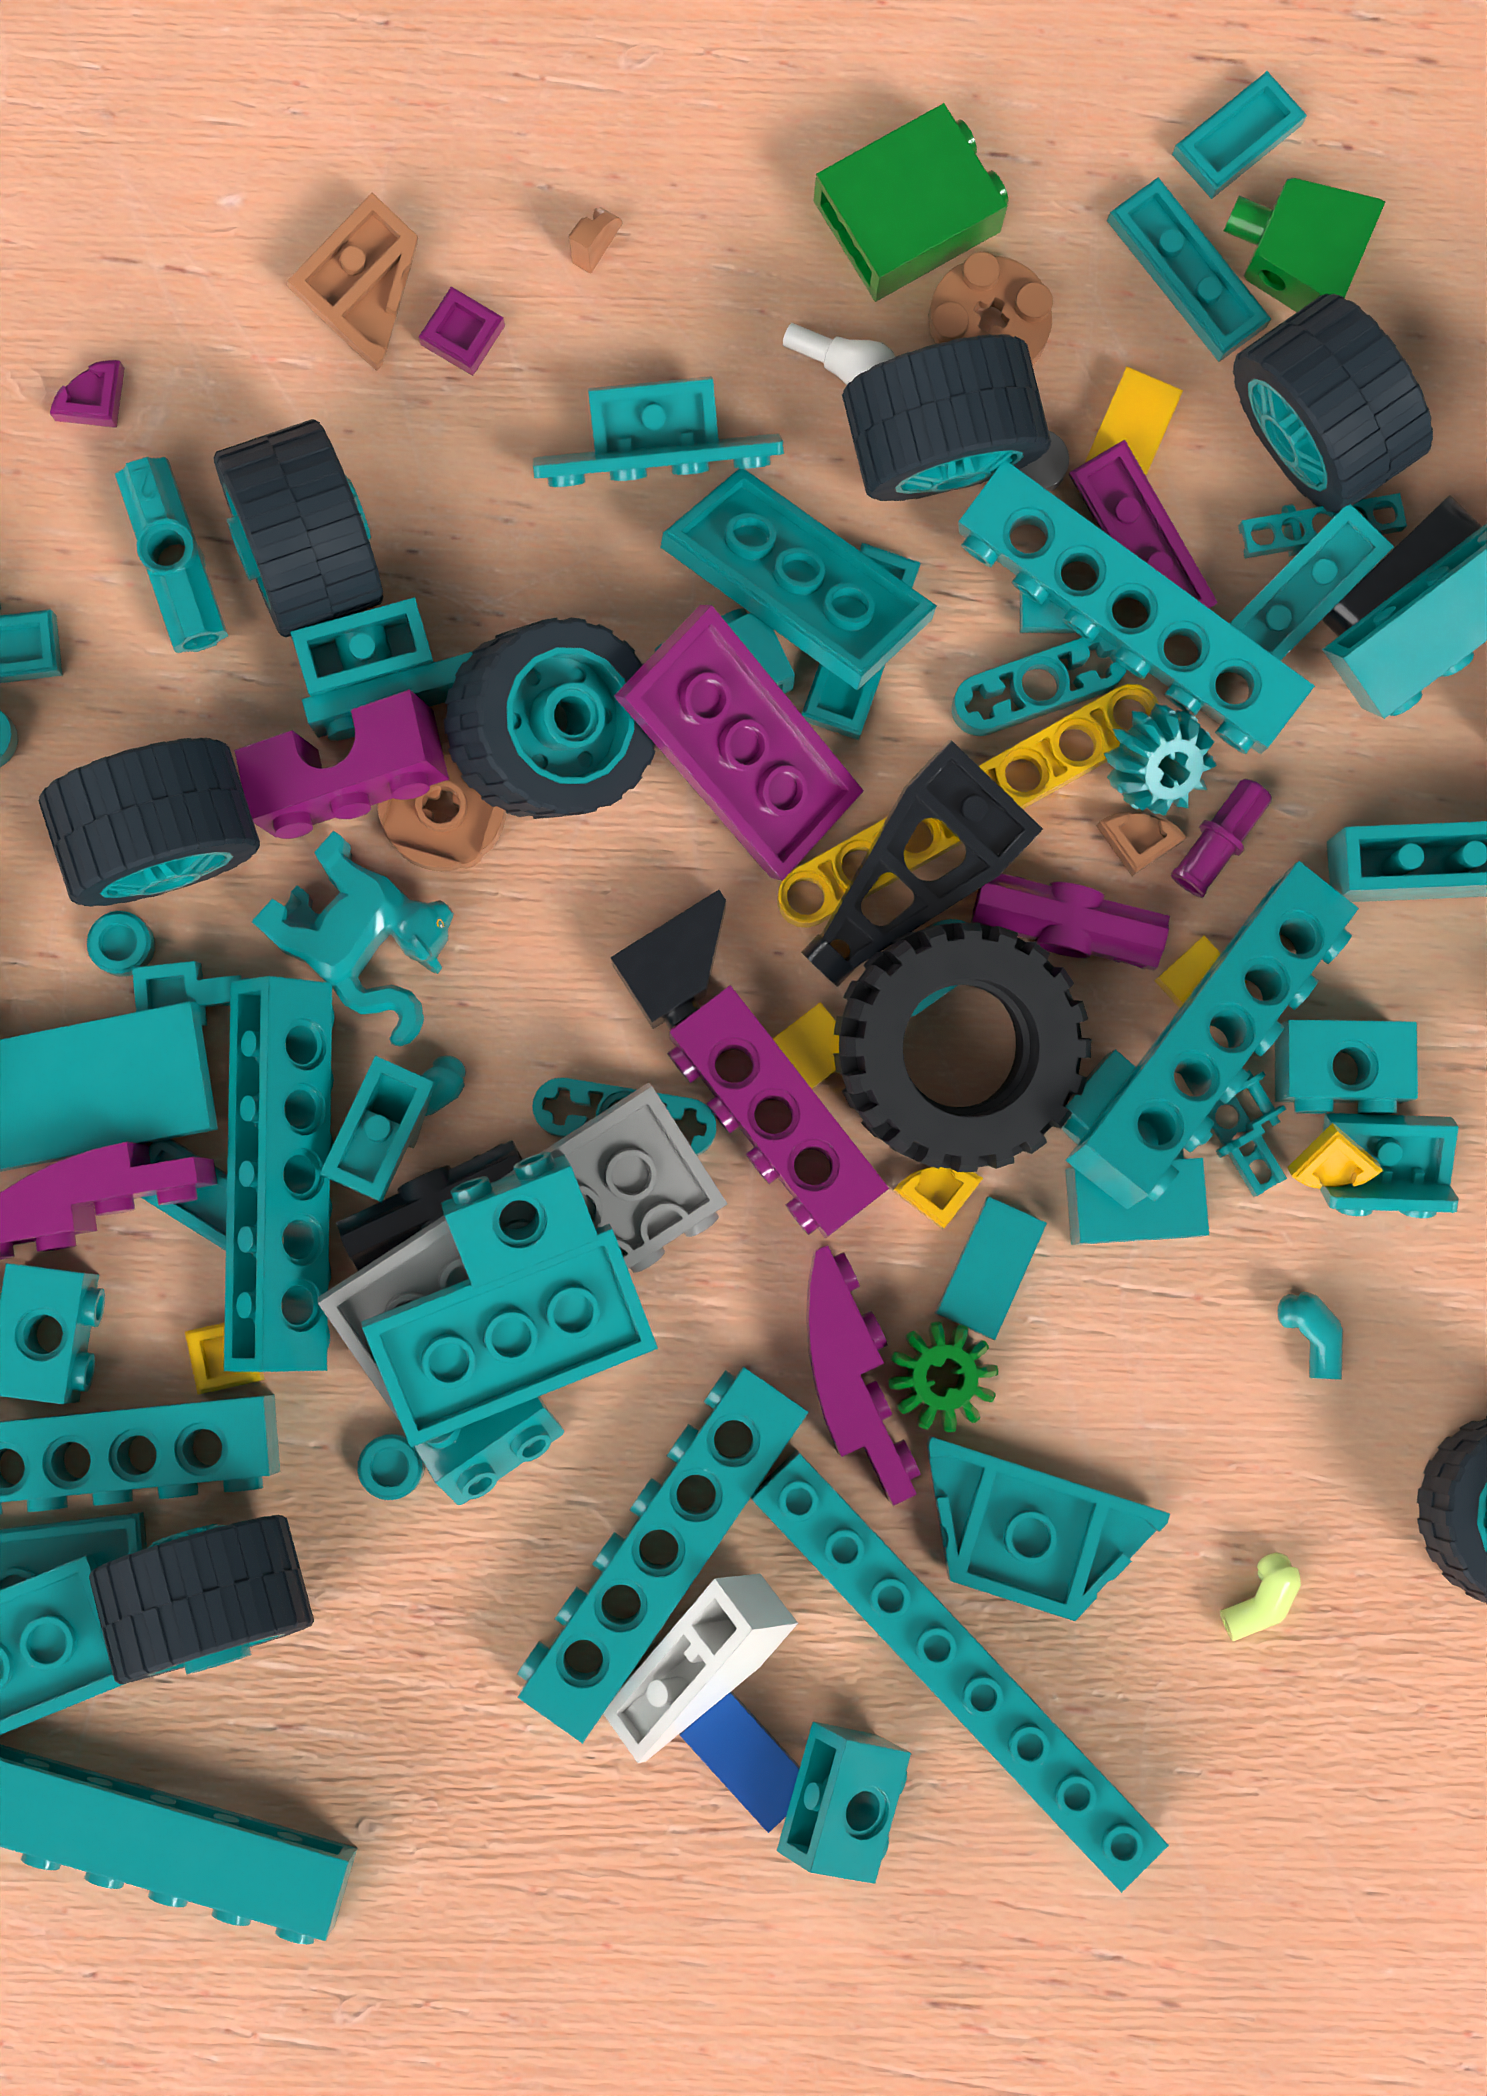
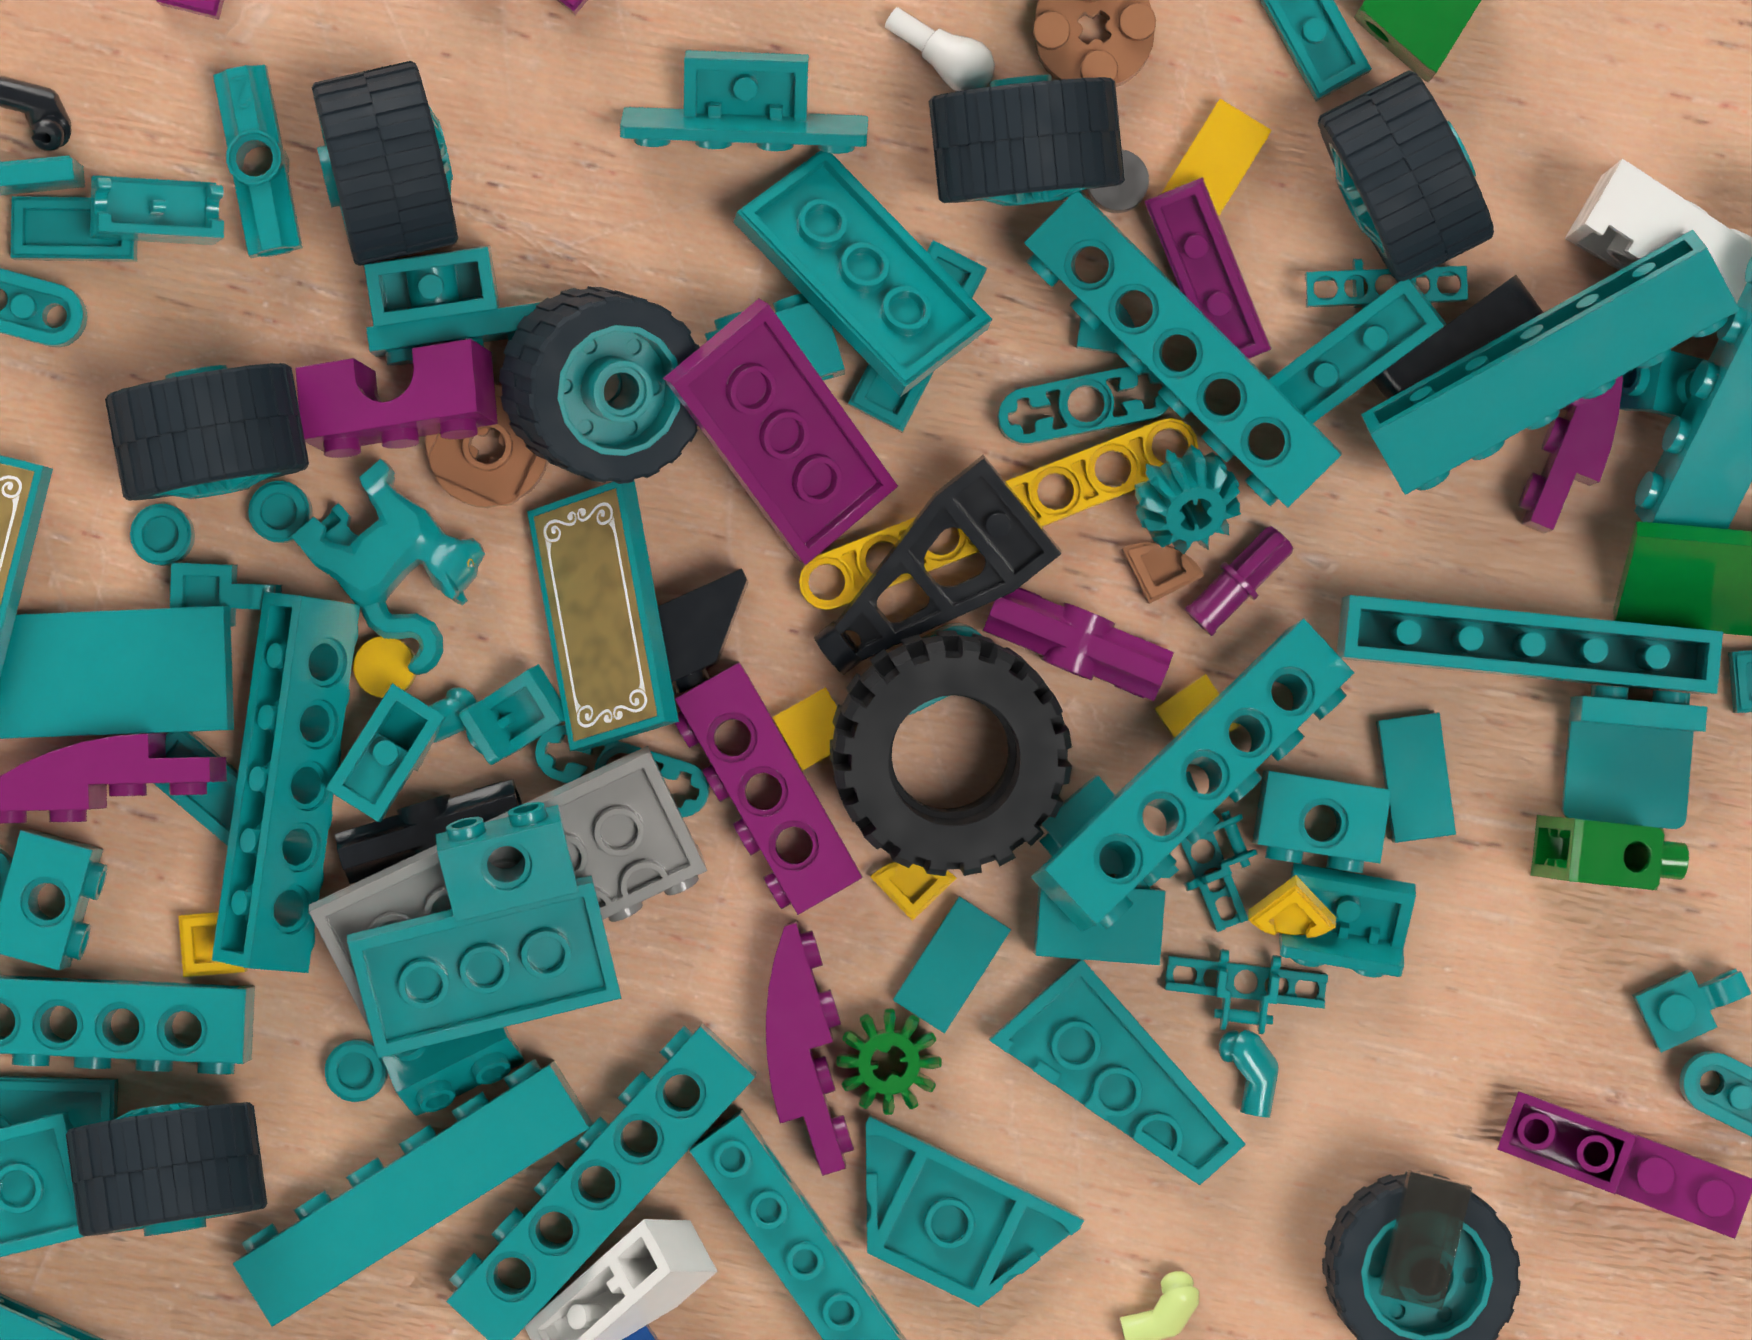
camera: 15 degrees right, 5 degrees up
(72, 618) = (155, 210): none -> teal hinge
(235, 902) = (279, 511): none -> teal tile
(361, 1040) = (383, 663): none -> yellow tile
(465, 1588) = (413, 1192): none -> teal brick
(505, 1075) = (513, 715): none -> teal bracket
(583, 958) = (602, 616): none -> pearl gold tile
(1171, 1347) = (1109, 1063): none -> teal wing
(1273, 1251) = (1225, 987): none -> teal piece
(1429, 993) = (1418, 777): none -> teal tile

